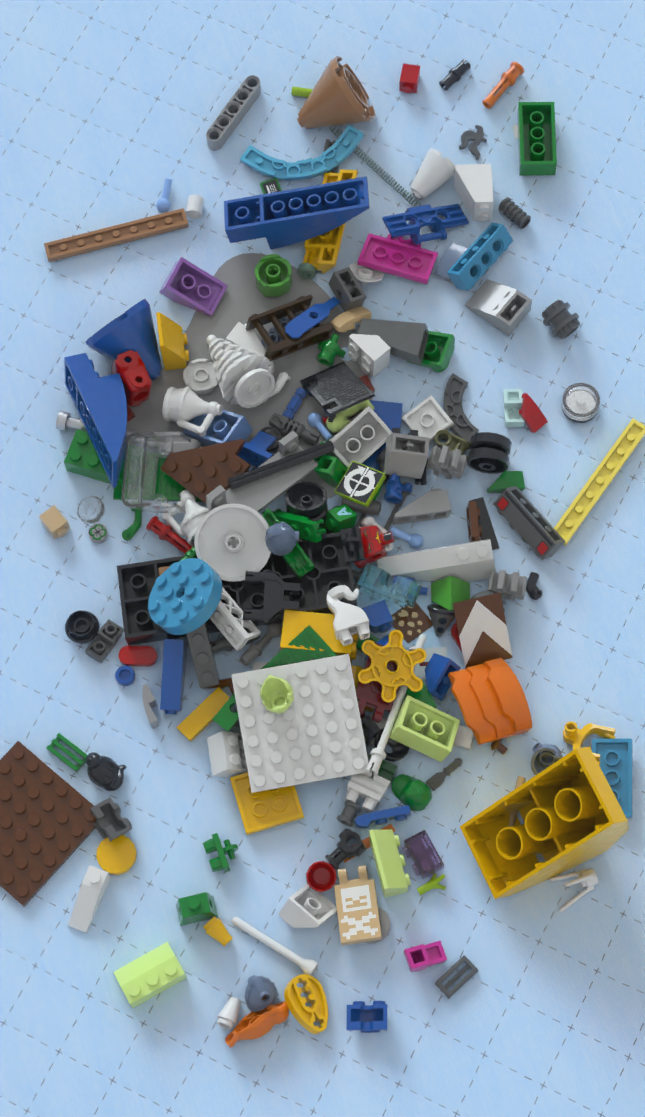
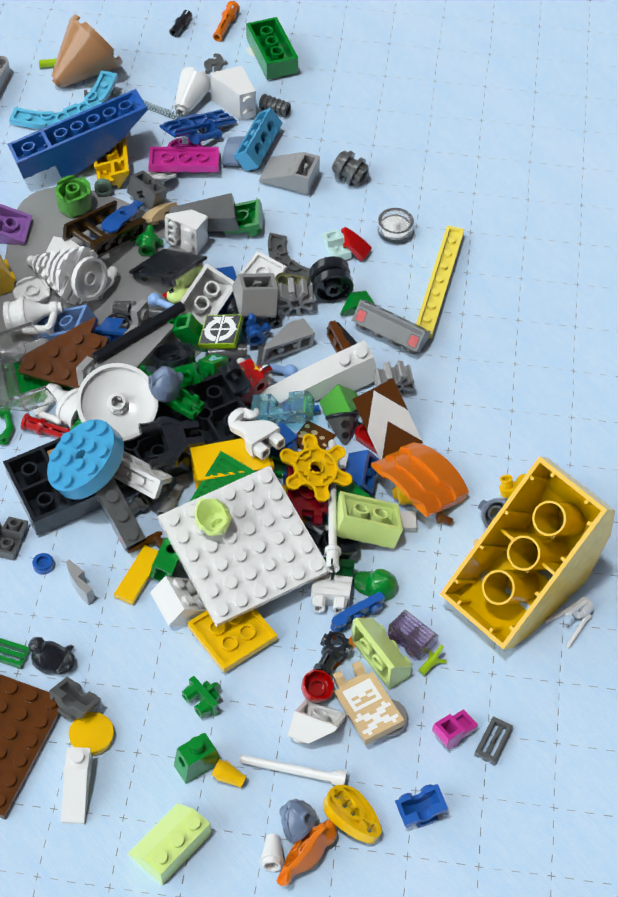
camera: 25 degrees left, 15 degrees down
(138, 656) = (50, 541): red tile -> none
(173, 675) = (94, 544): blue slope -> none
(294, 403) = (131, 289): blue axle -> none
(348, 813) = (322, 620): dark grey bush -> none
(409, 78) = (142, 32): red brick -> none
(439, 778) = (398, 563): clear smoke piece -> none
(531, 588) = (420, 382): black arm -> none

